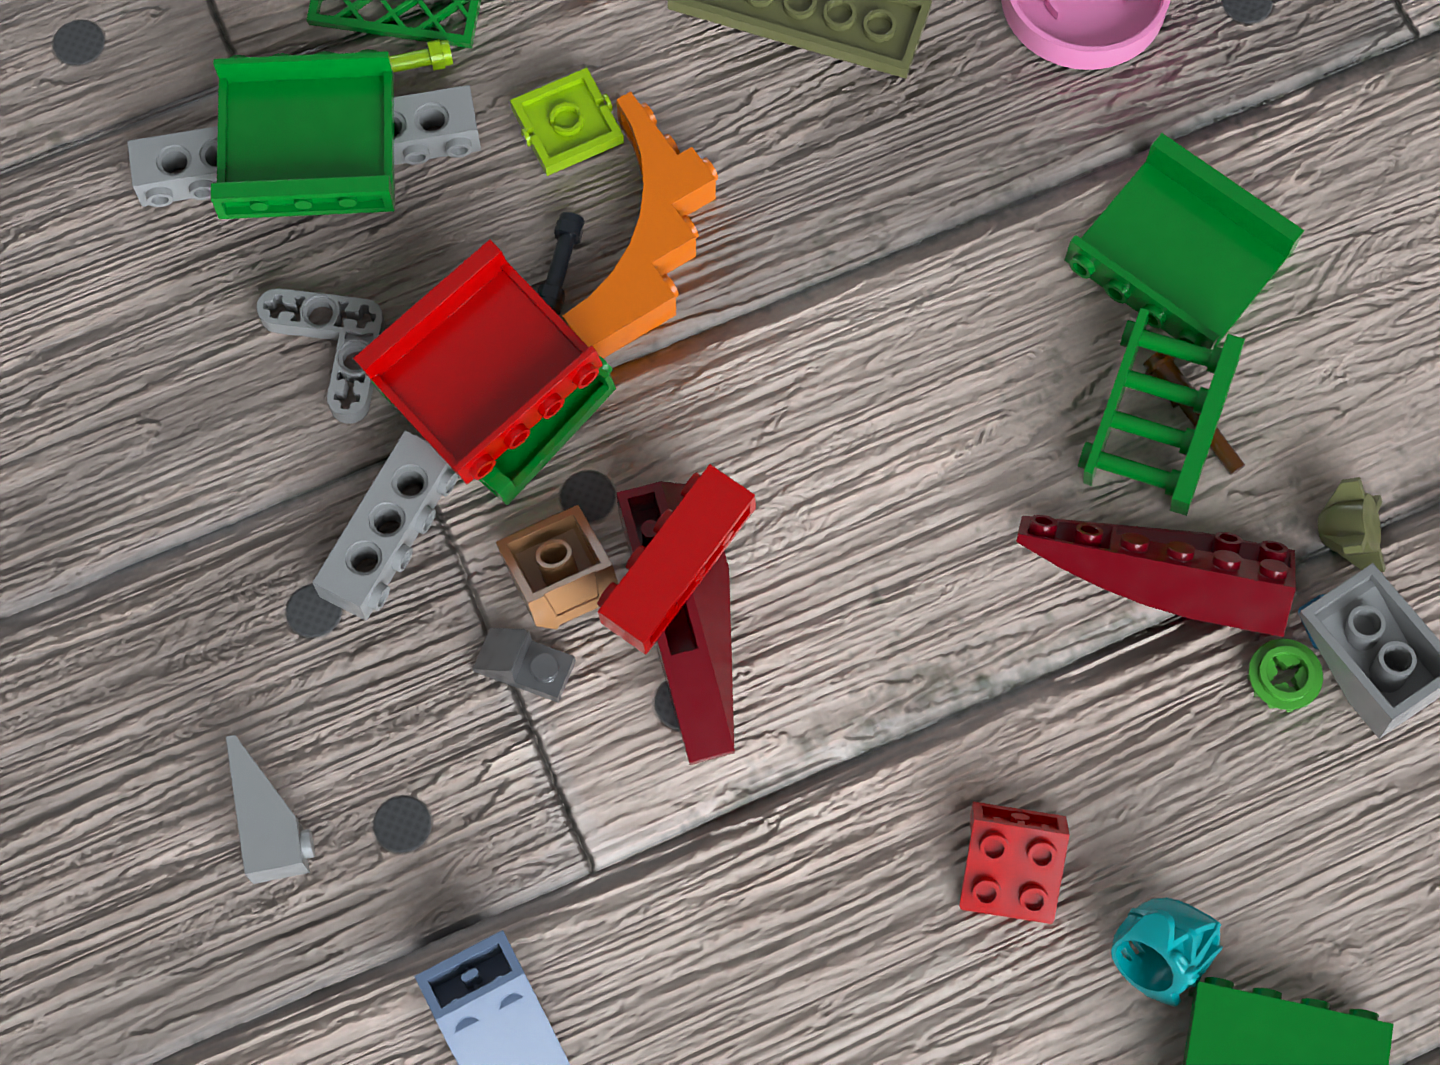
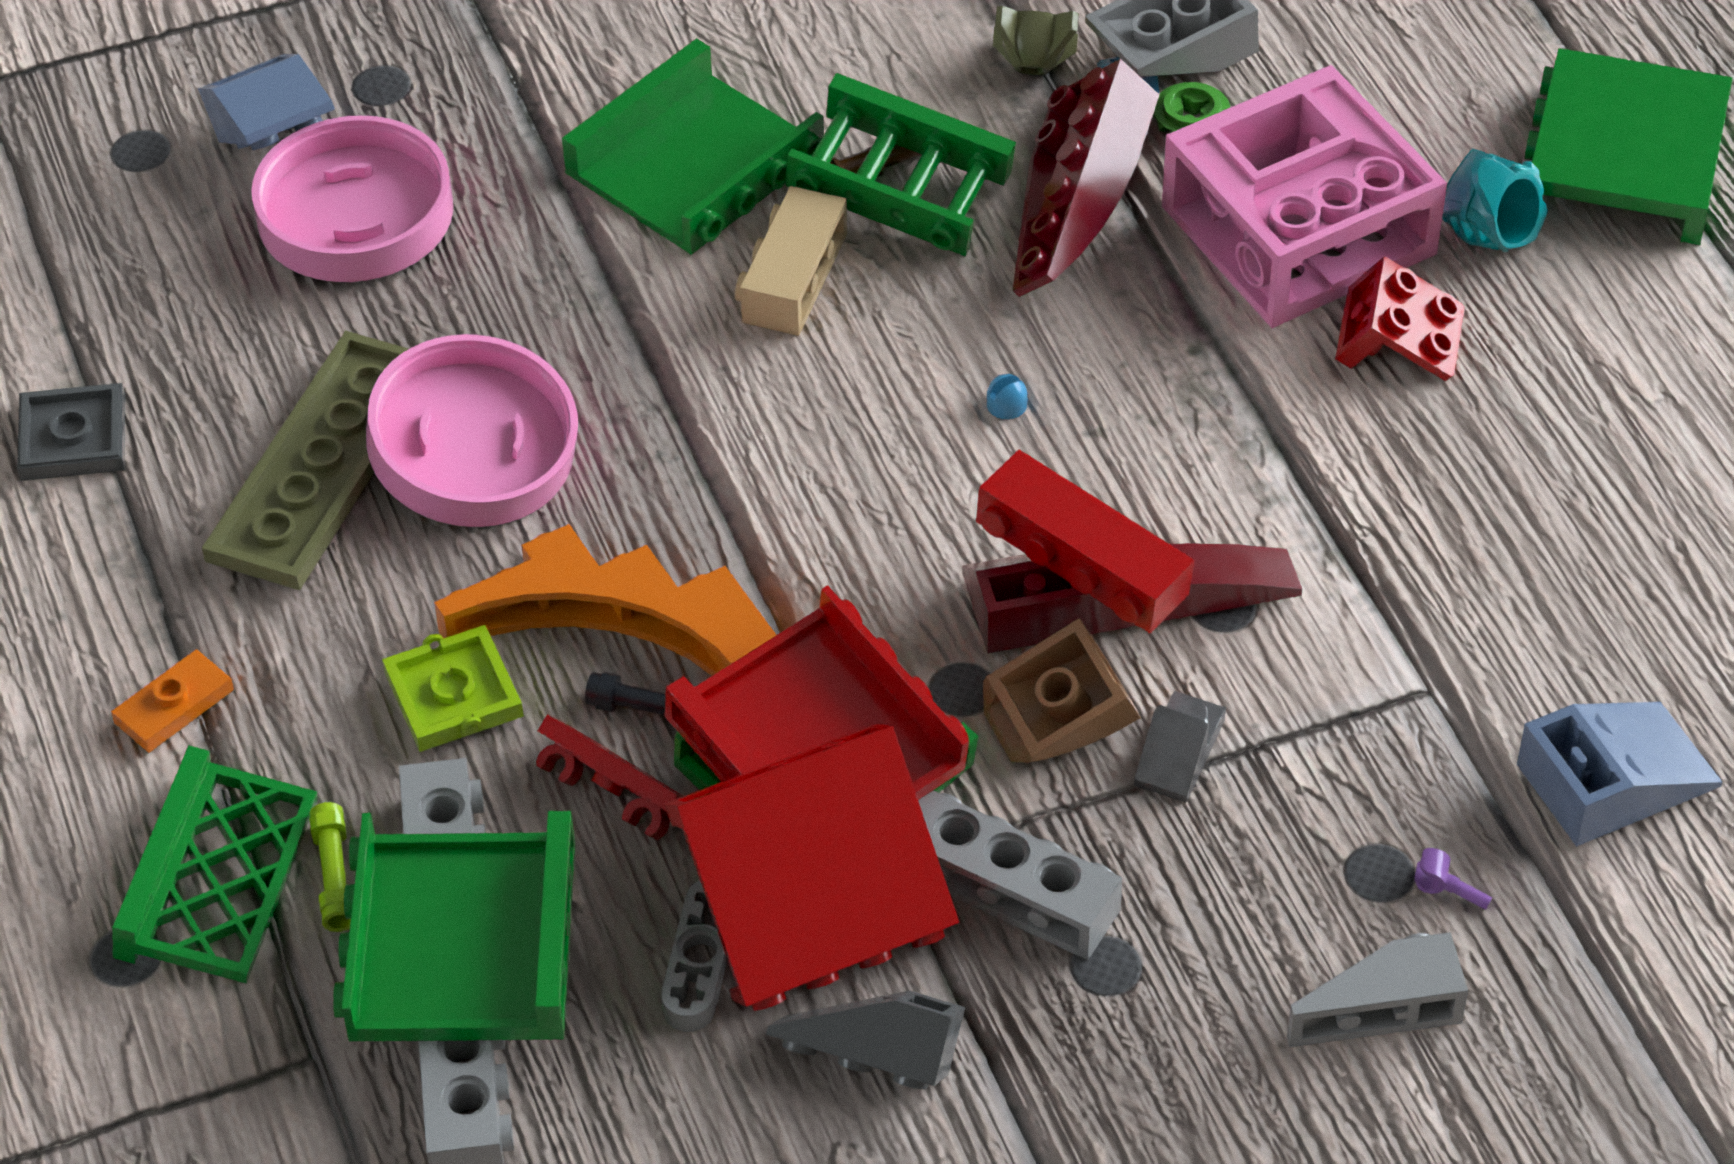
camera: 85 degrees left, 20 degrees down
(231, 435) = (891, 1032): none -> dark grey slope
(352, 364) = (816, 865): none -> red panel
(389, 863) = (1433, 877): none -> medium lavender hand
(497, 220) = (611, 774): none -> red plate
(822, 101) = (471, 430): none -> bright pink piece
(899, 524) = (1007, 397): none -> dark azure hinge
(1047, 334) = (792, 260): none -> tan brick
(1138, 765) = (1298, 178): none -> bright pink piece

